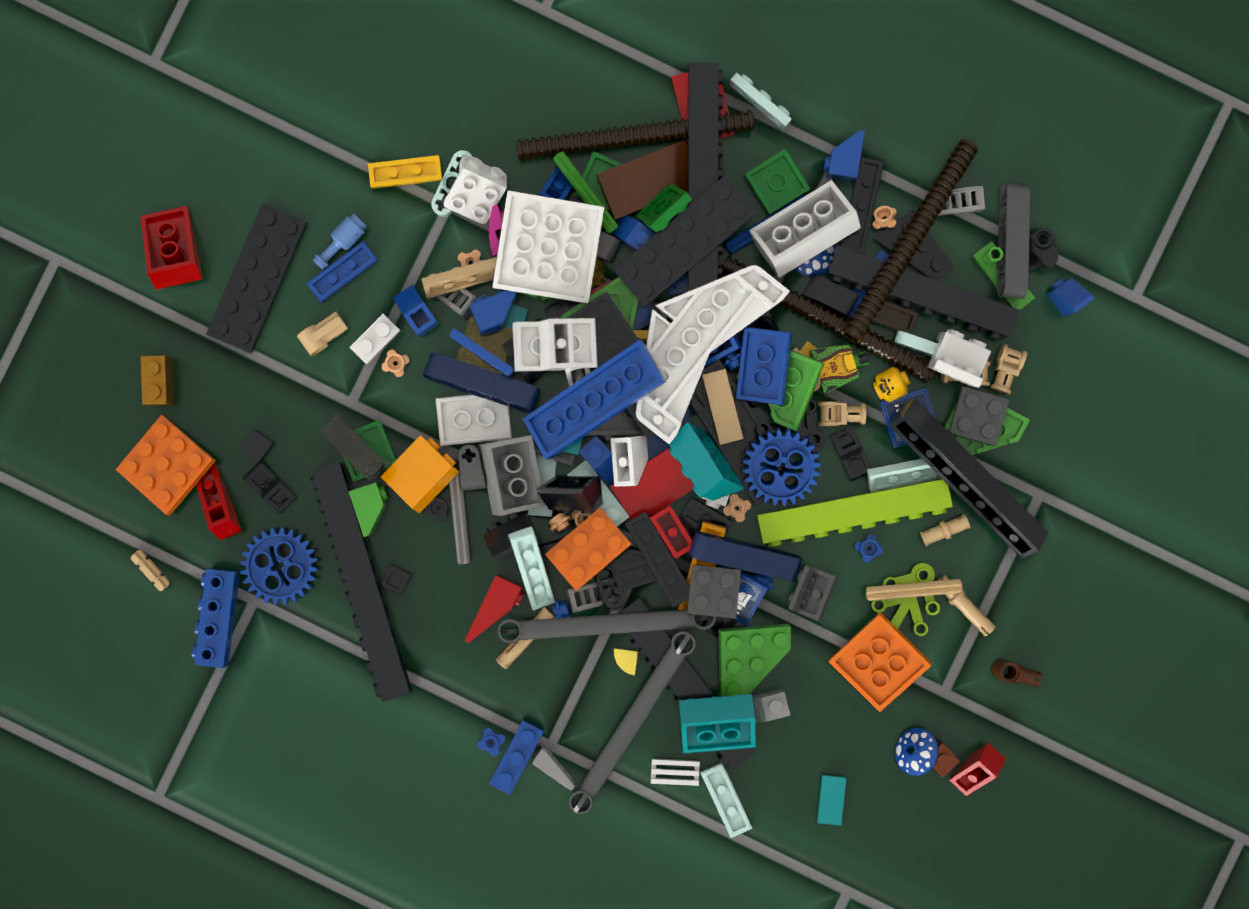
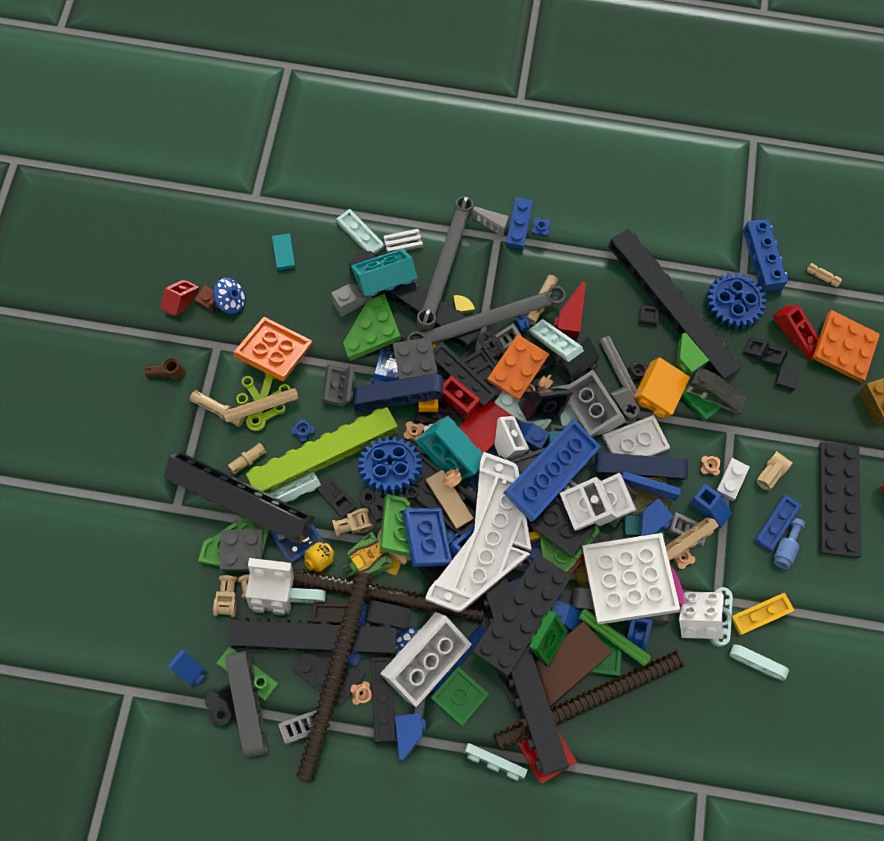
camera: 155 degrees right, 20 degrees down
(430, 119) = (759, 662): none -> light aqua beam
(714, 427) = (452, 478): none -> light nougat plate

